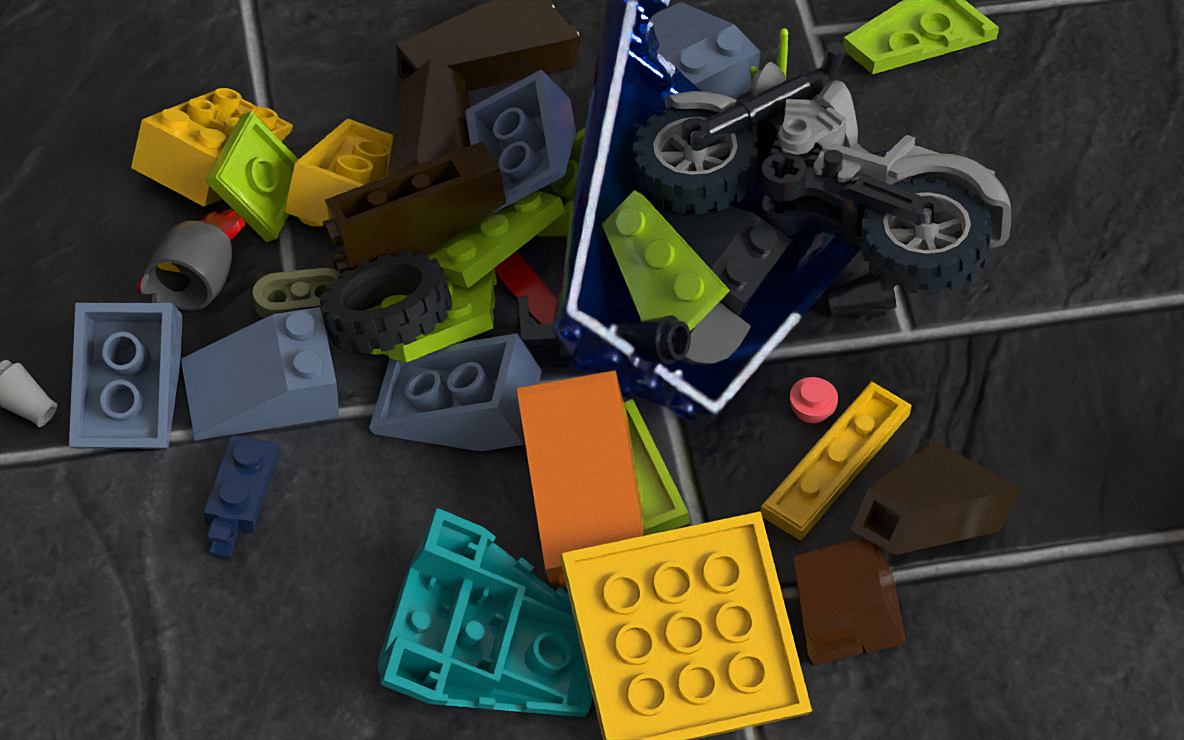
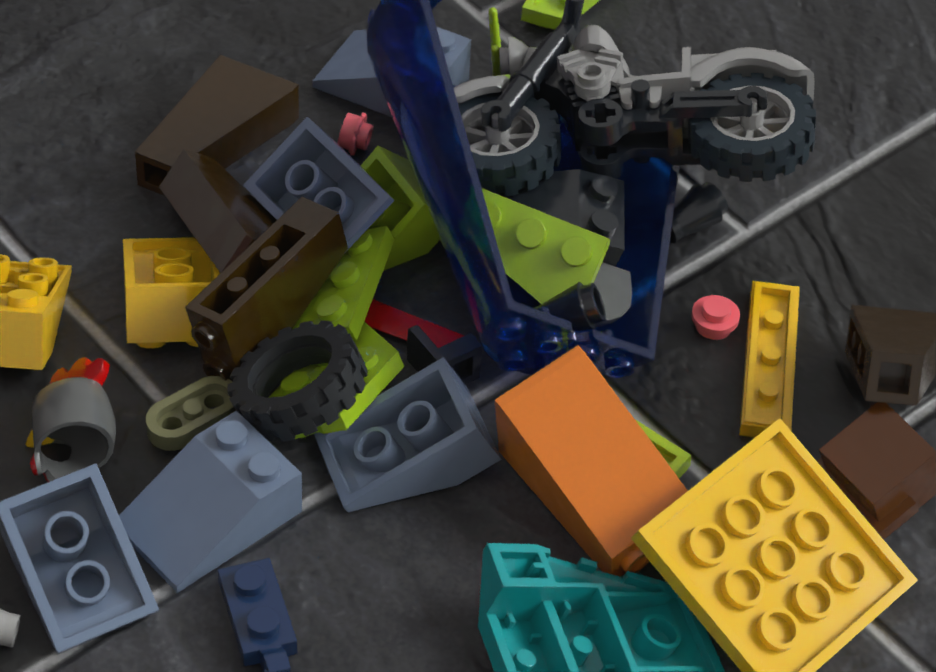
camera: 30 degrees left, 5 degrees down
(254, 176) = (83, 317): lime tile -> none

